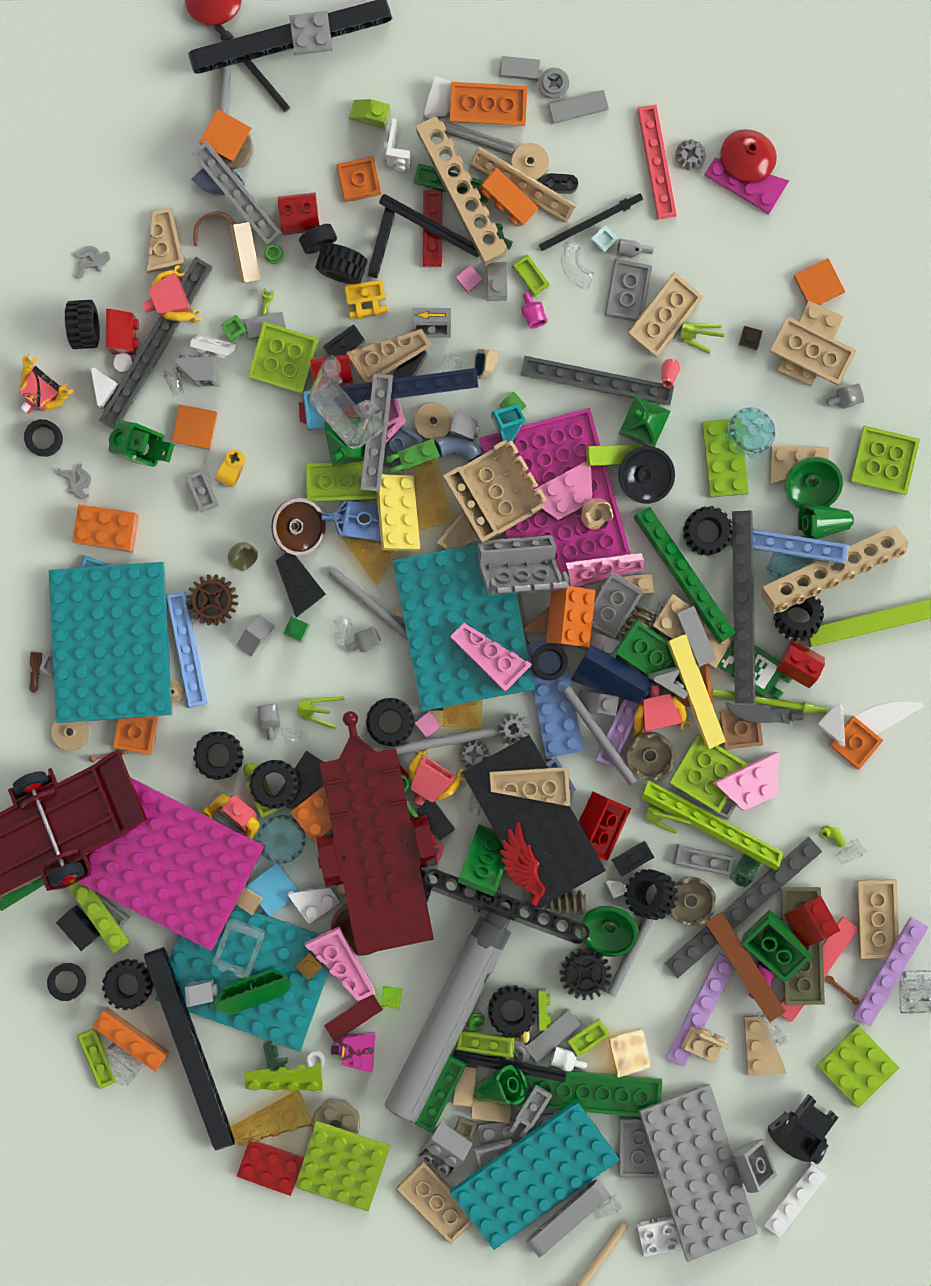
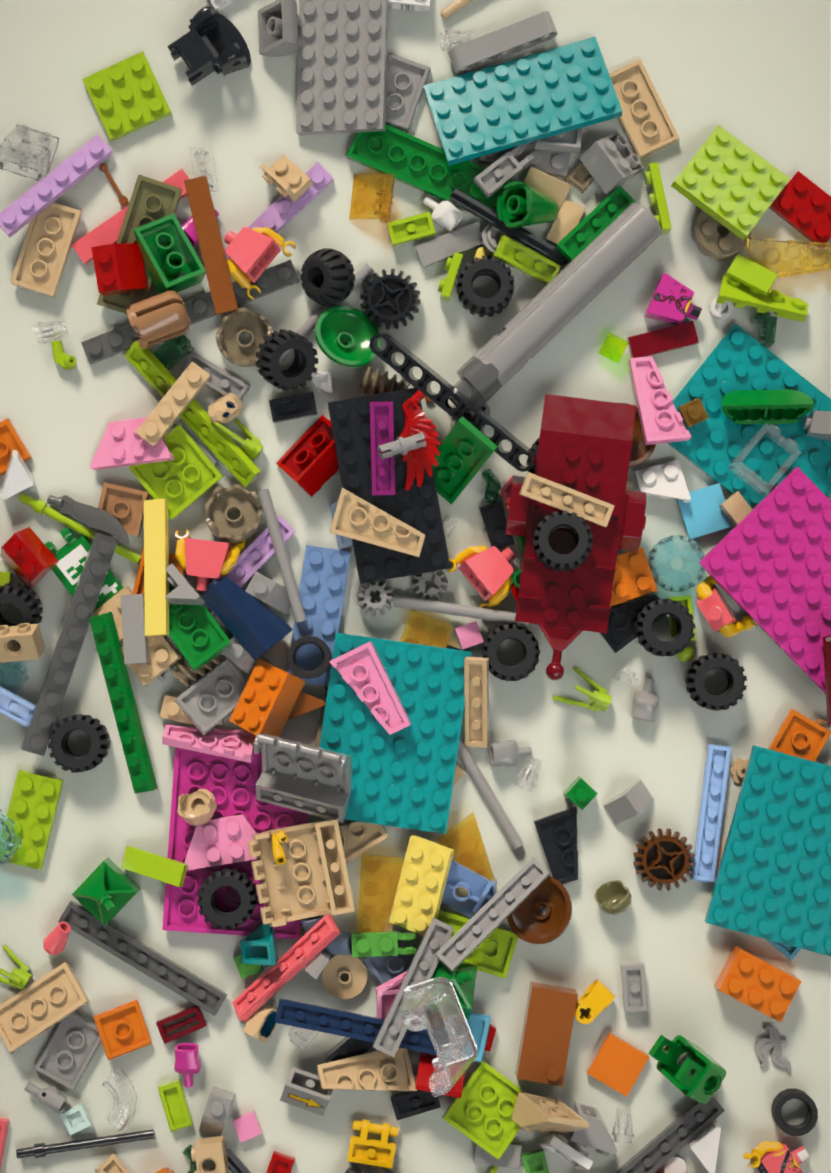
camera: 160 degrees left, 0 degrees up
(238, 368) = (546, 1115): none -> tan slope
(259, 431) = (546, 1034): none -> dark orange brick
(299, 1095) = (752, 274): none -> lime tile
(333, 510) = (492, 914): none -> light grey plate
(384, 840) = (569, 522): none -> black tyre
(387, 858) = (566, 499): none -> tan plate
(397, 1132) = (657, 196): none -> lime plate
(403, 673) = (476, 701): none -> tan plate
(449, 849) = (492, 487): none -> clear green arm
(475, 1021) = (529, 289): bright green plate -> none
(482, 412) = (286, 967): none -> coral tile
(521, 503) = (277, 847): none -> yellow arm
(534, 856) = (401, 445): none -> light grey pin
(549, 848) = (381, 433): none -> magenta plate
(552, 434) = (216, 915): none -> black tyre
(555, 344) = (199, 1015): none -> dark red tile
(593, 319) = (122, 1029): none -> orange tile
(642, 974) = (327, 276): none -> black wheel
(658, 478) = (110, 829): black dish -> none
(686, 838) = (225, 409): none -> tan rock
(709, 972) = (252, 253): none -> coral torso
(729, 826) = (173, 404): none -> tan plate
(760, 1054) = (229, 146): tan wing -> none
(765, 891) = (159, 318): none -> medium nougat cylinder

